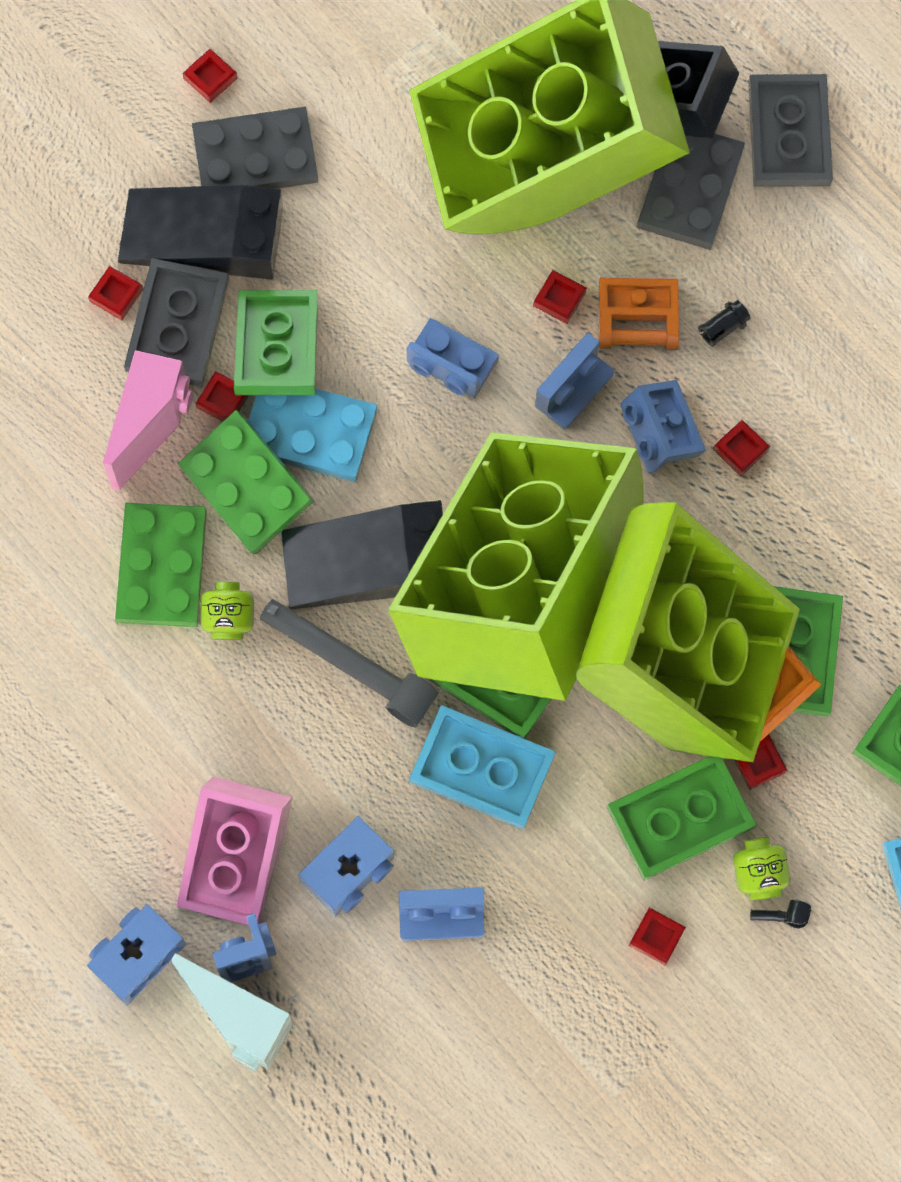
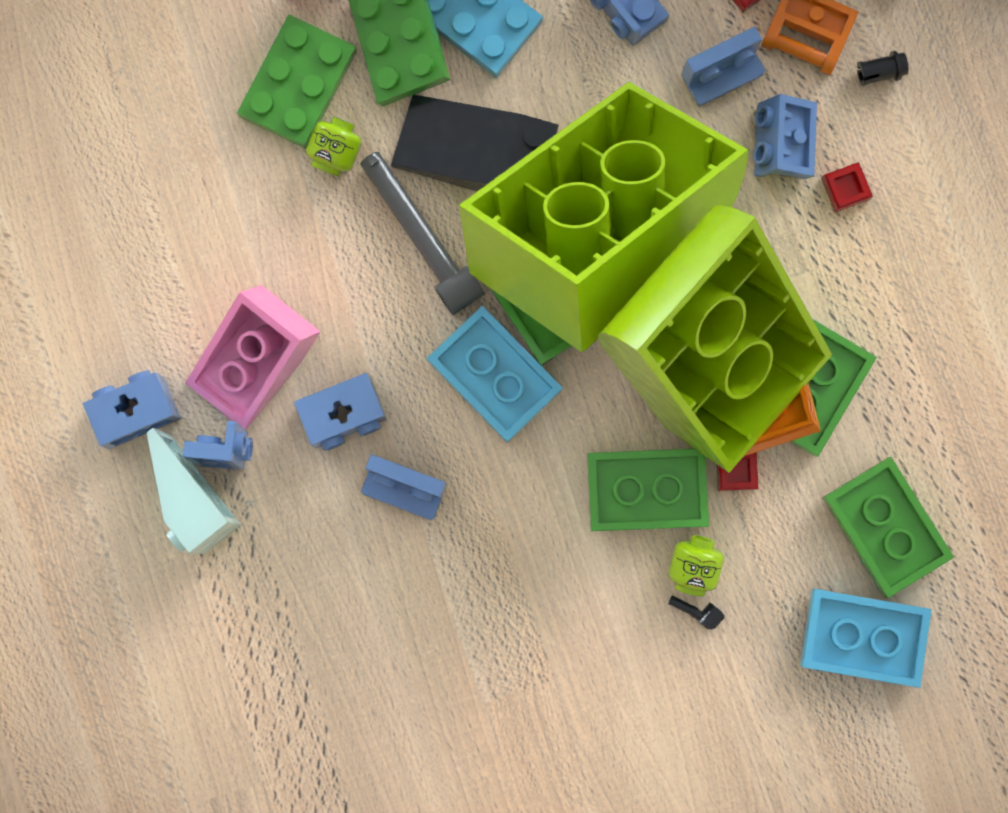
camera: 25 degrees right, 10 degrees up
(657, 936) = (581, 583): red tile -> none

